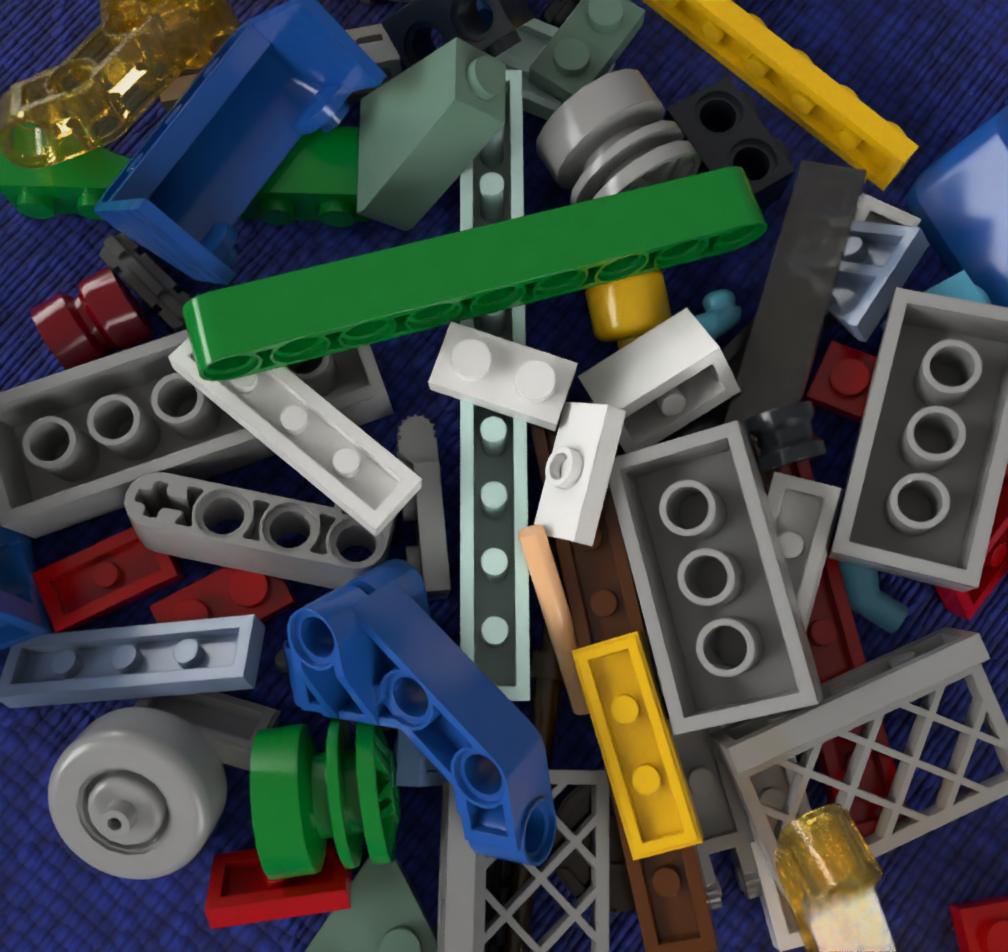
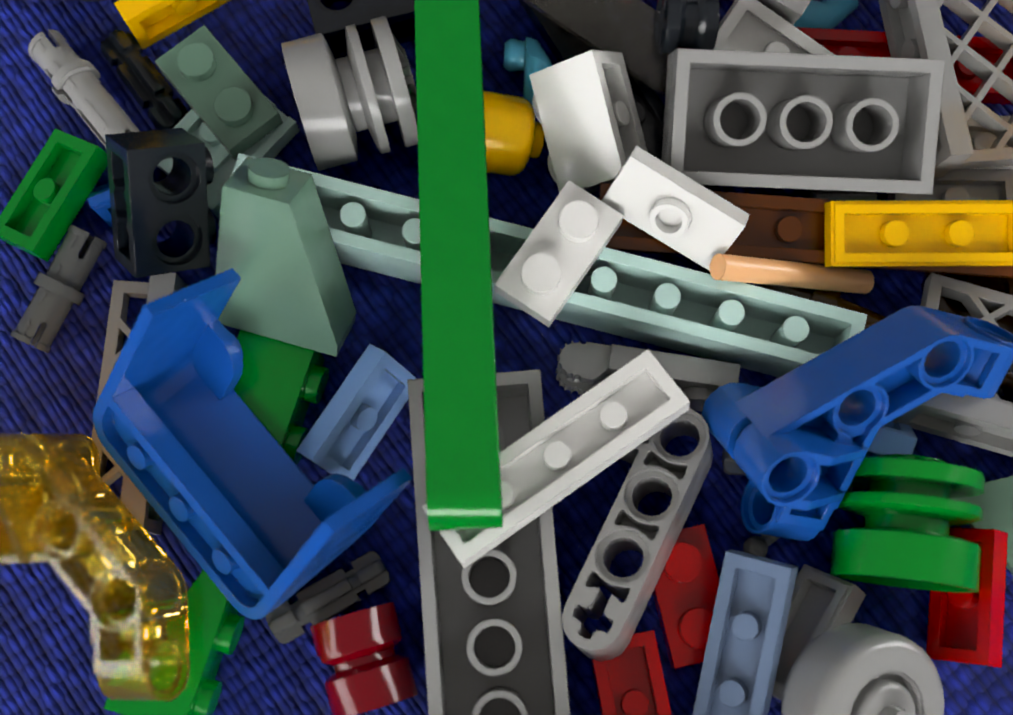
camera: 75 degrees left, 0 degrees up
(295, 244) = (358, 414): none -> light blue plate

